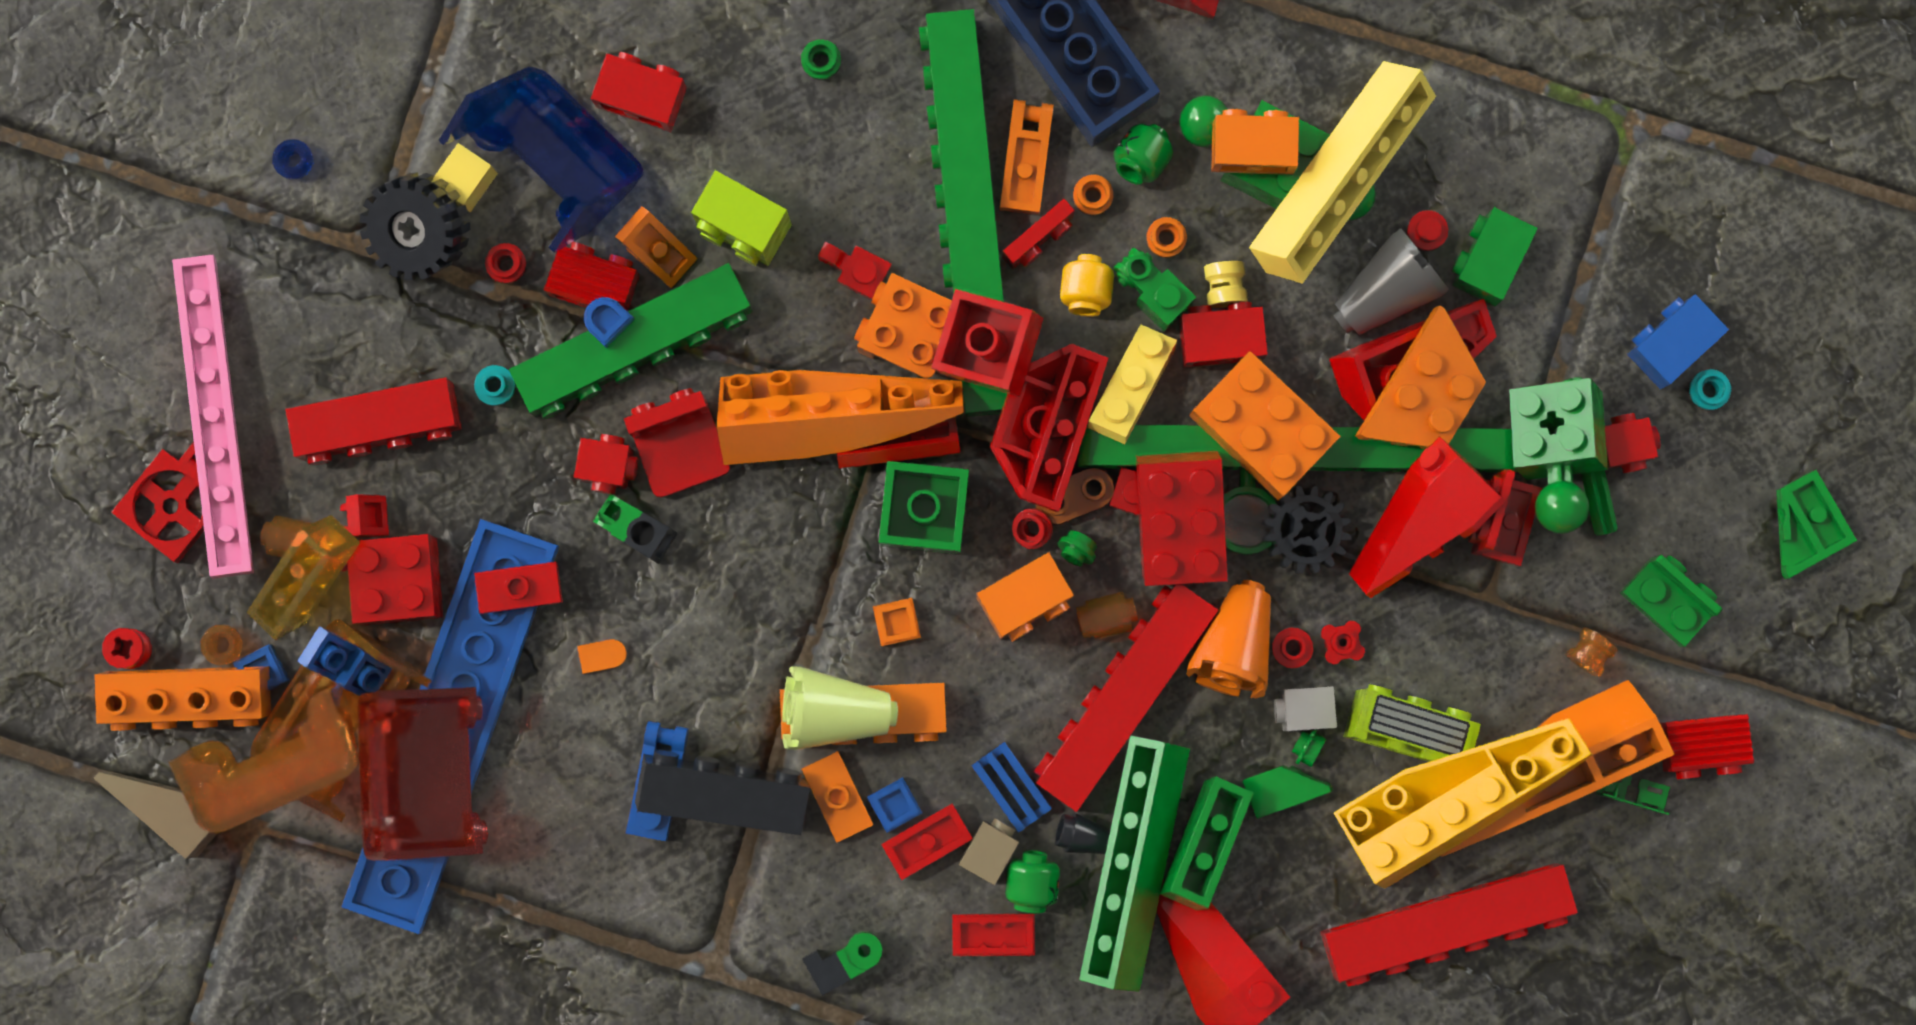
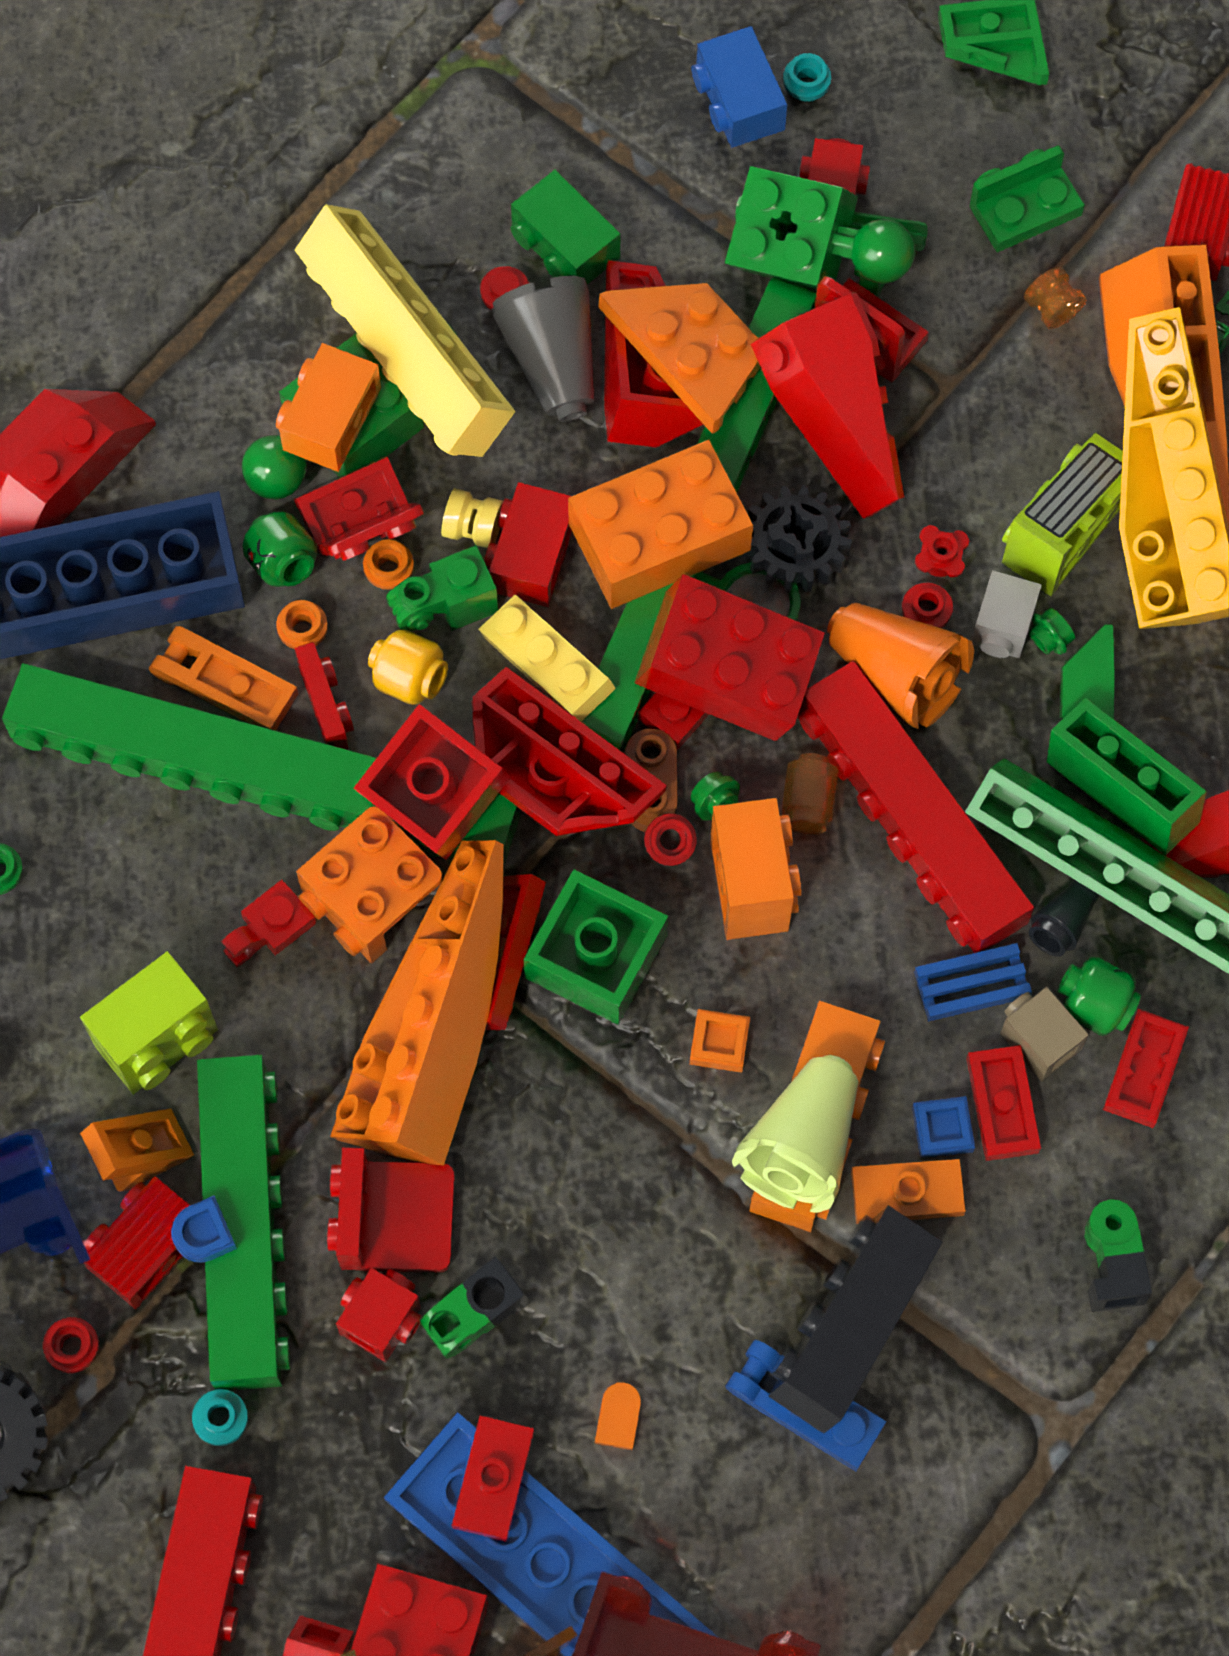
camera: 70 degrees left, 15 degrees down
(1193, 199) = (357, 509): none -> red bracket

